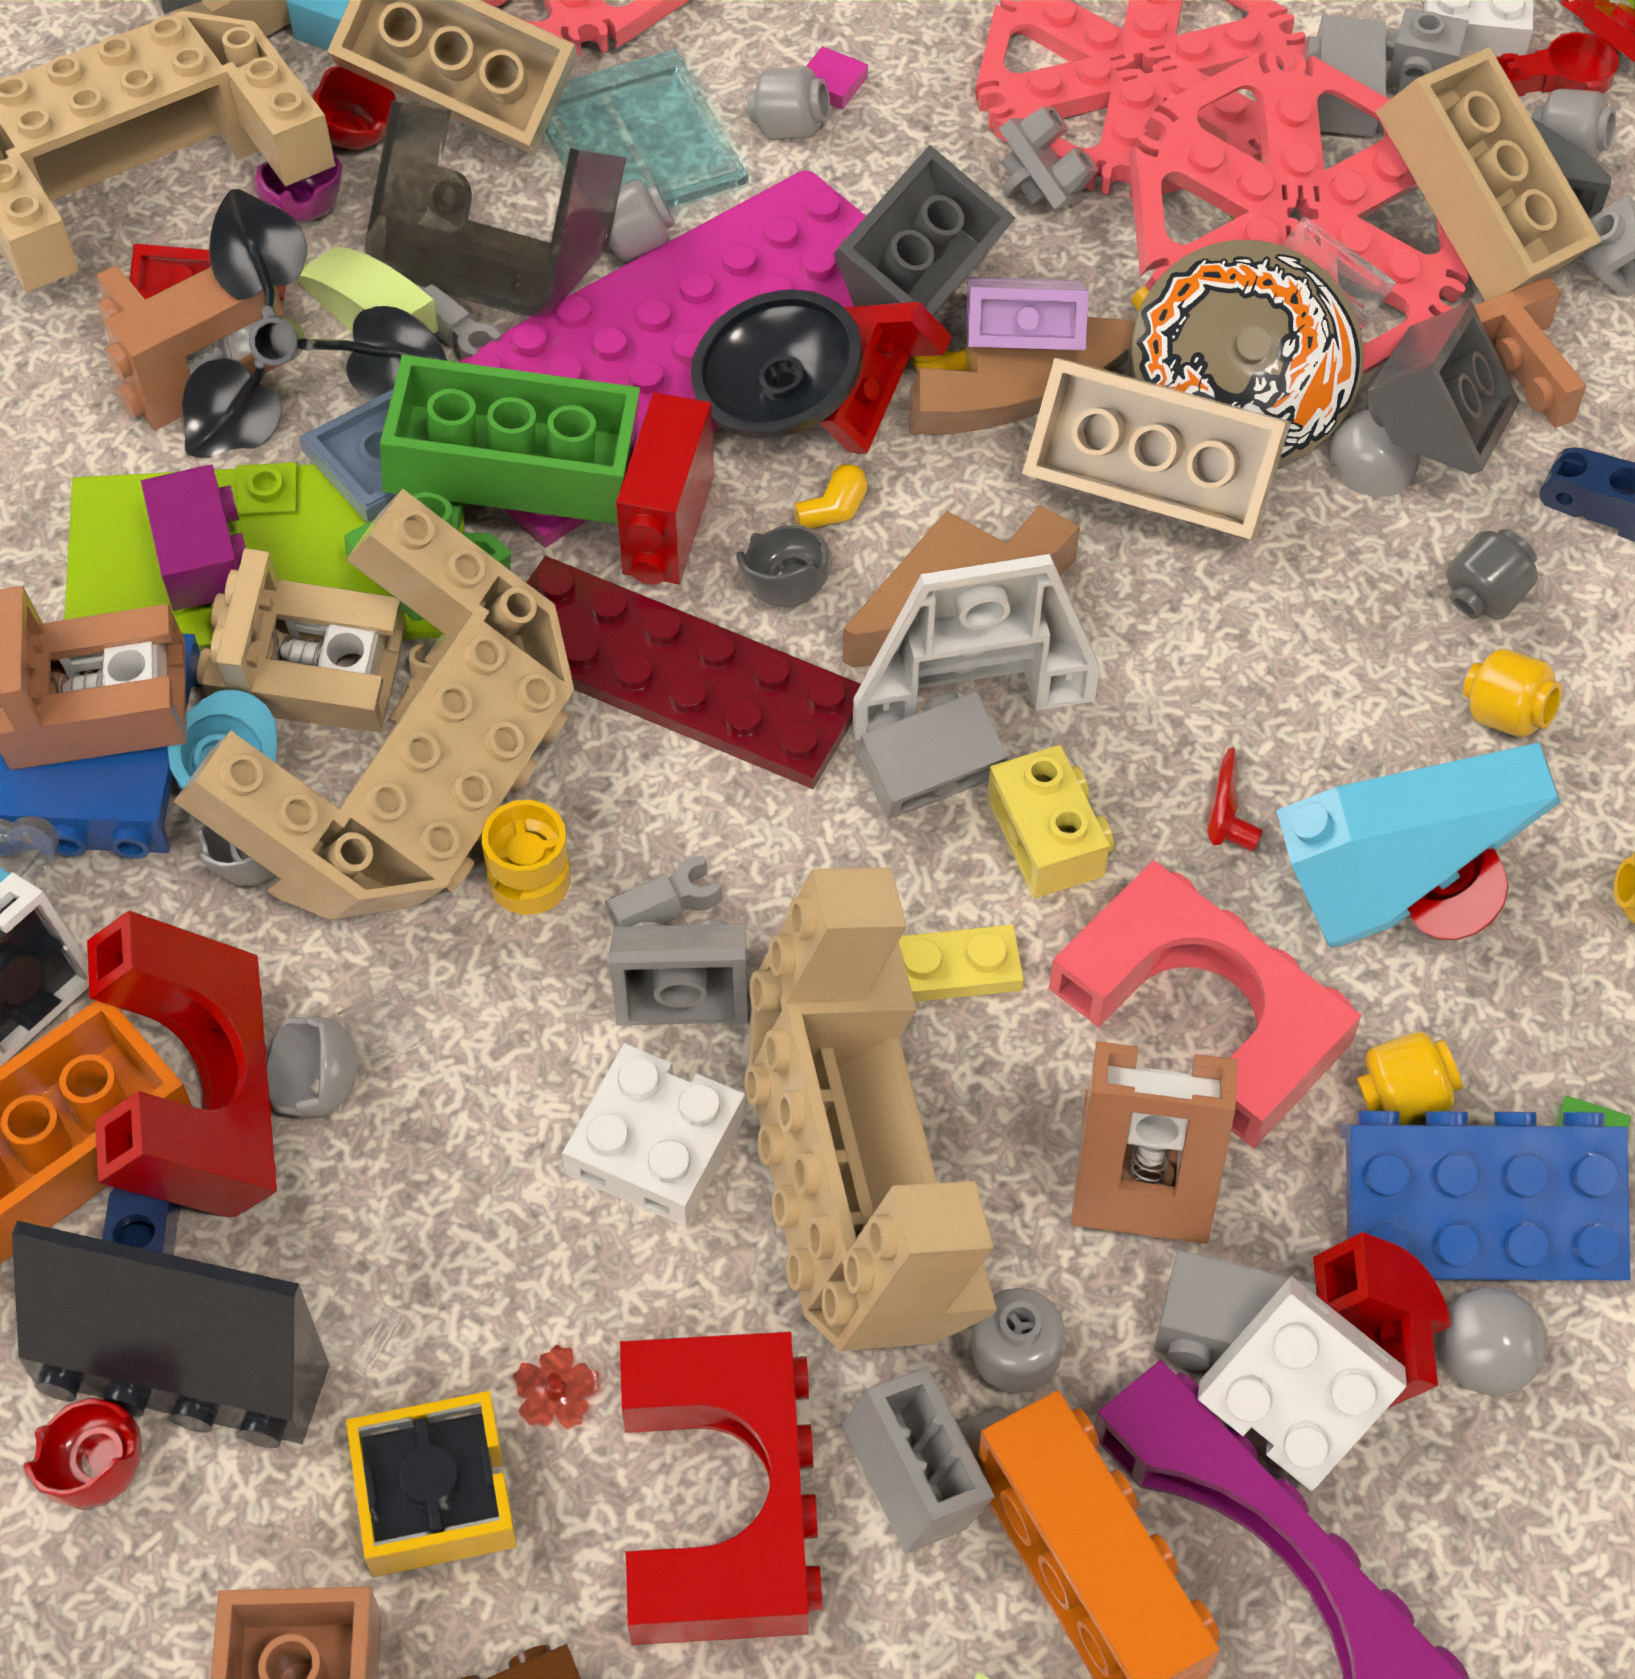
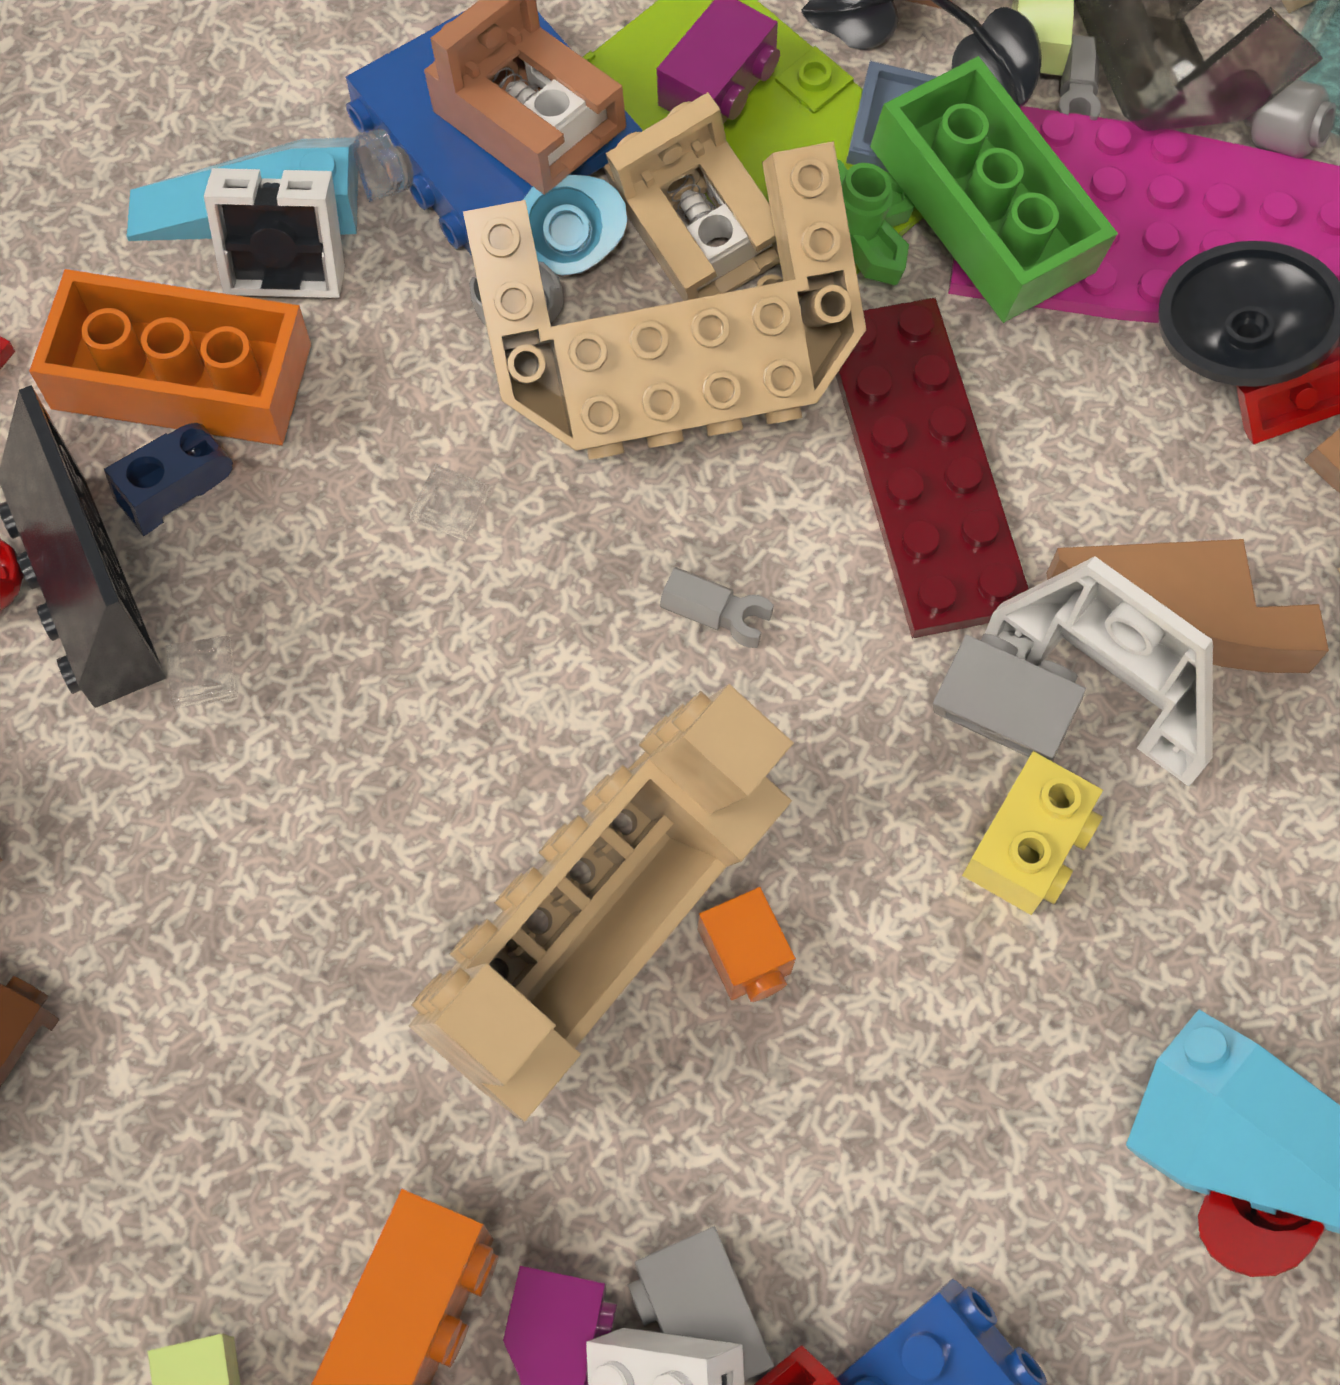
camera: 50 degrees right, 10 degrees up
(213, 1004) = (365, 379): red arch -> none
(307, 1052) = (371, 483): light grey hair -> none
(430, 1484) = (110, 815): piece -> none
(526, 856) = (658, 484): yellow wheel -> none
(555, 1389) = (261, 843): clear red plant -> none
(654, 1135) = (510, 752): white piece -> none
(665, 489) = (1062, 326): red brick -> none
(679, 973) = (650, 654): light grey slope -> none
(759, 1577) = (213, 1106): red arch -> none
(796, 553) = (1102, 453): dark grey hair -> none
(839, 501) = (1186, 458): yellow arm -> none
(920, 1458) = (388, 1153): light grey brick -> none
(962, 962) = (845, 858): light yellow plate -> none
(969, 1078) = (747, 946): none -> orange brick
(1020, 1342) = (561, 1172): light grey head -> none
(1153, 1145) = (783, 1135): nougat brick -> none
(1168, 925) = (1019, 996): coral arch -> none
(1224, 804) = (1163, 971): red bar -> none
(1410, 1077) = (1047, 1308): yellow head -> none

